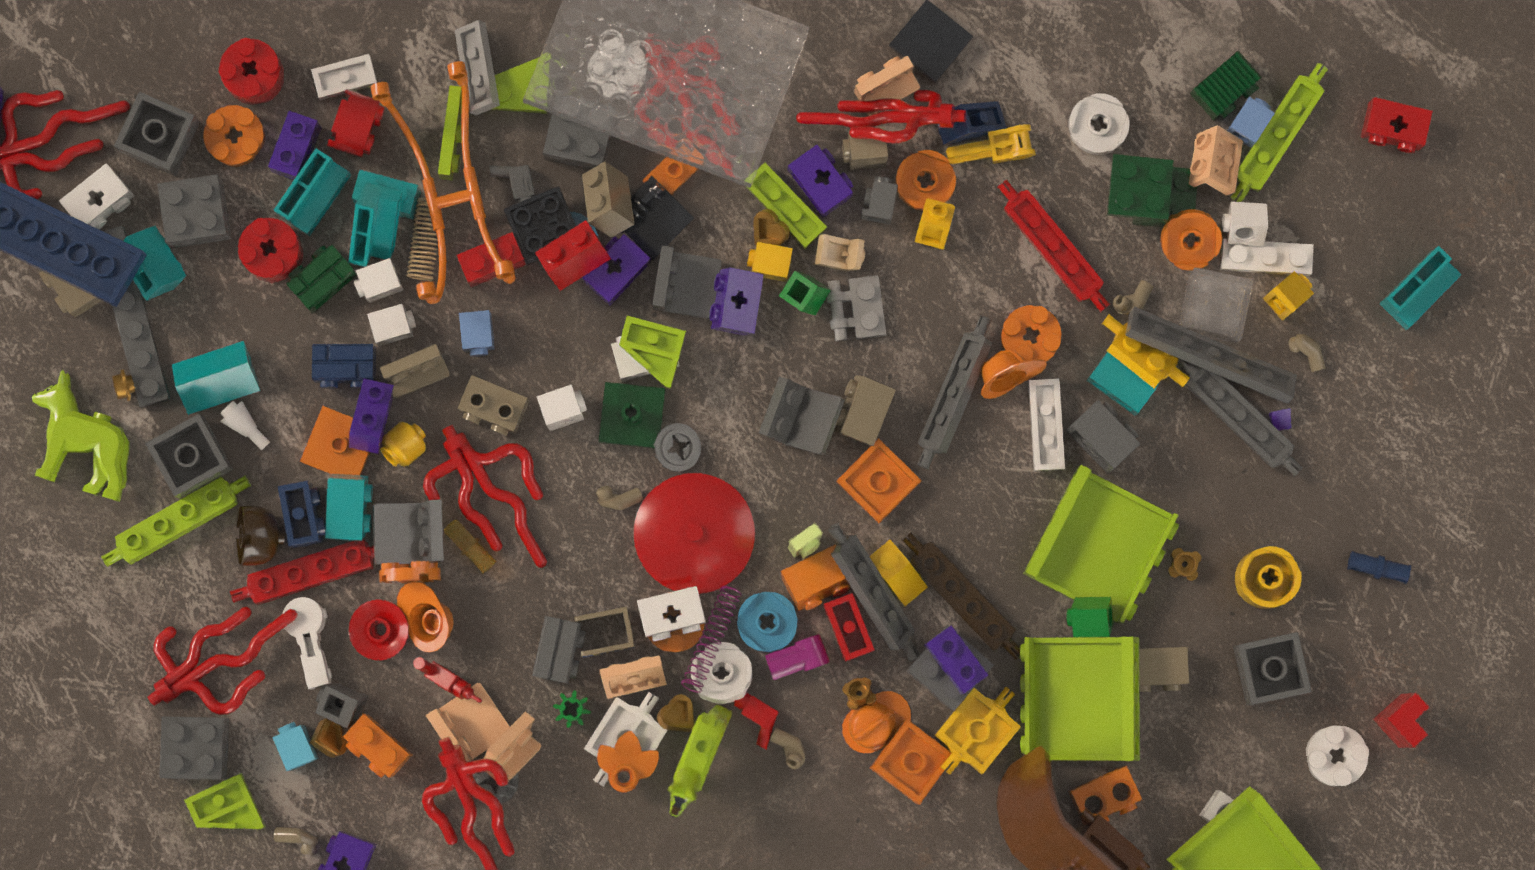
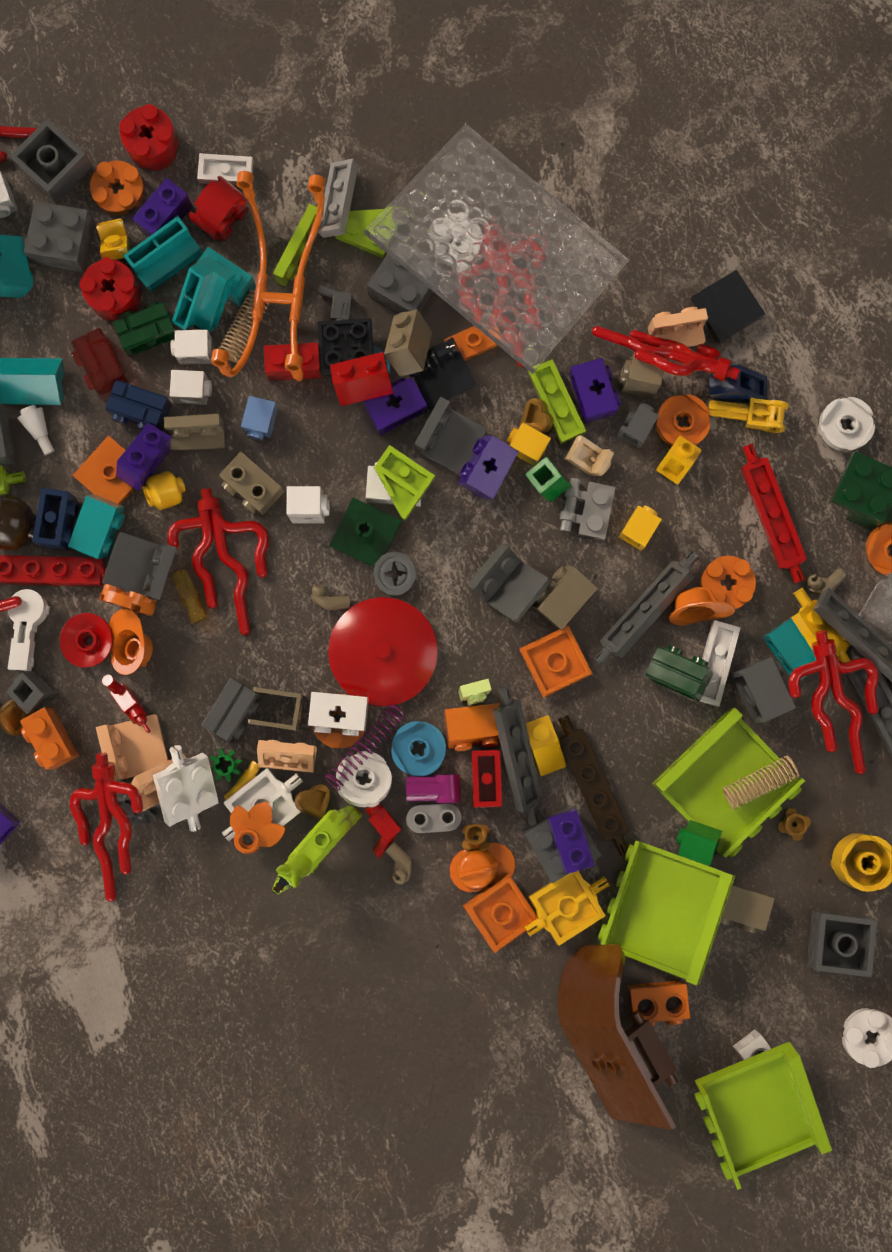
camera: 20 degrees right, 0 degrees up
(253, 195) = (113, 239): none -> yellow bracket
(284, 330) = (98, 360): none -> clear red brick
(541, 746) = (185, 788): none -> white plate
(598, 713) = (245, 778): none -> yellow helmet
(808, 688) = (433, 815): none -> light grey plate
(919, 308) = (640, 527): none -> yellow brick
(1011, 448) = (679, 673): none -> dark green brick
(1151, 499) = (743, 795): none -> tan piece
(1161, 391) = (829, 672): none -> red plant

